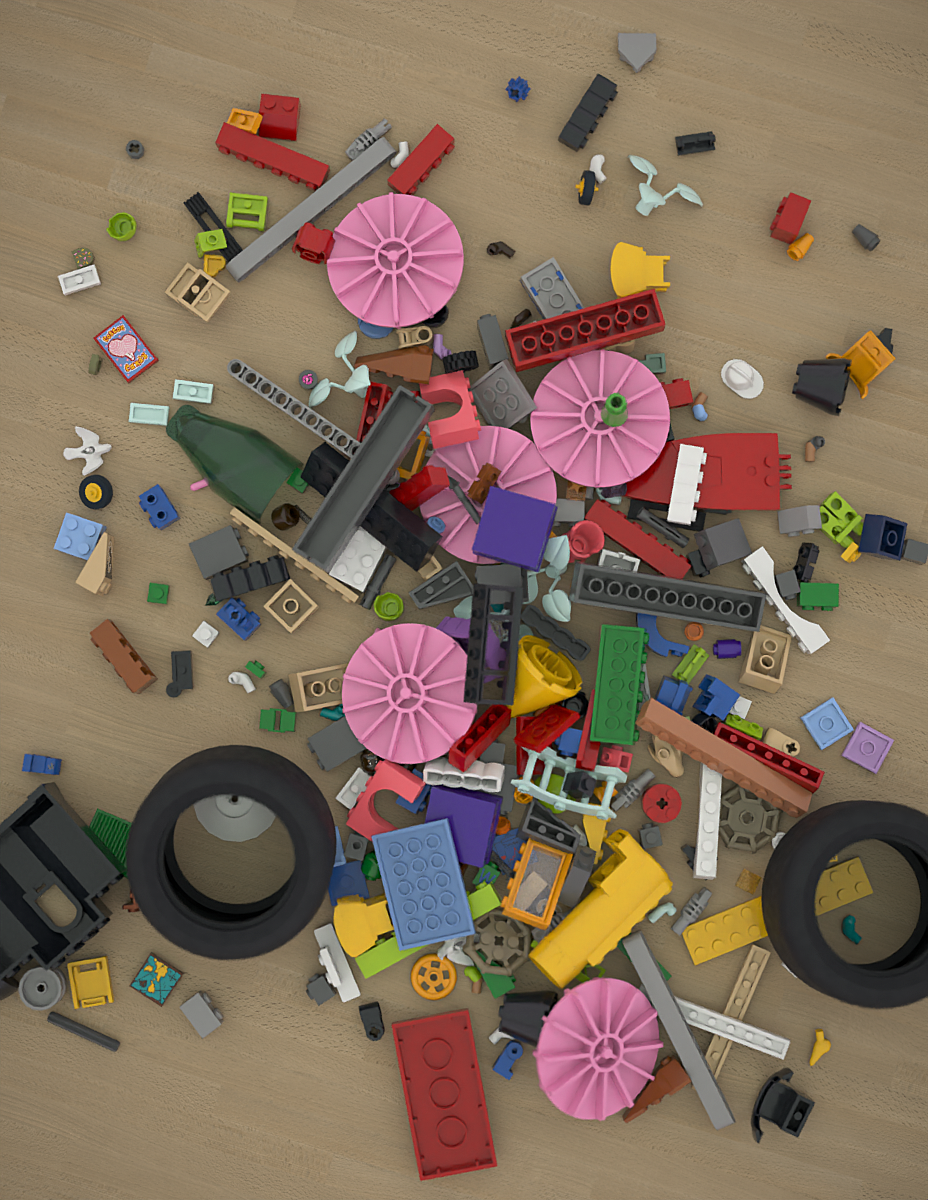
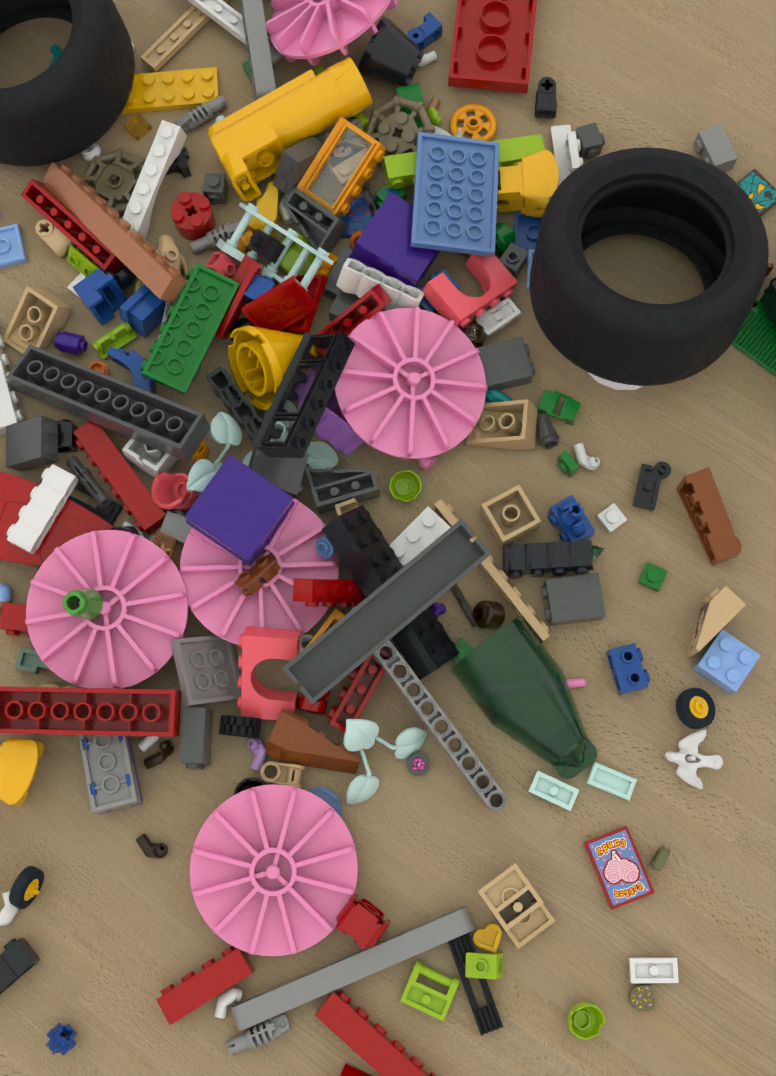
camera: 155 degrees left, 10 degrees down
(375, 586) = (409, 516): dark grey pin -> none
(454, 485) = (288, 575): dark grey piece -> none

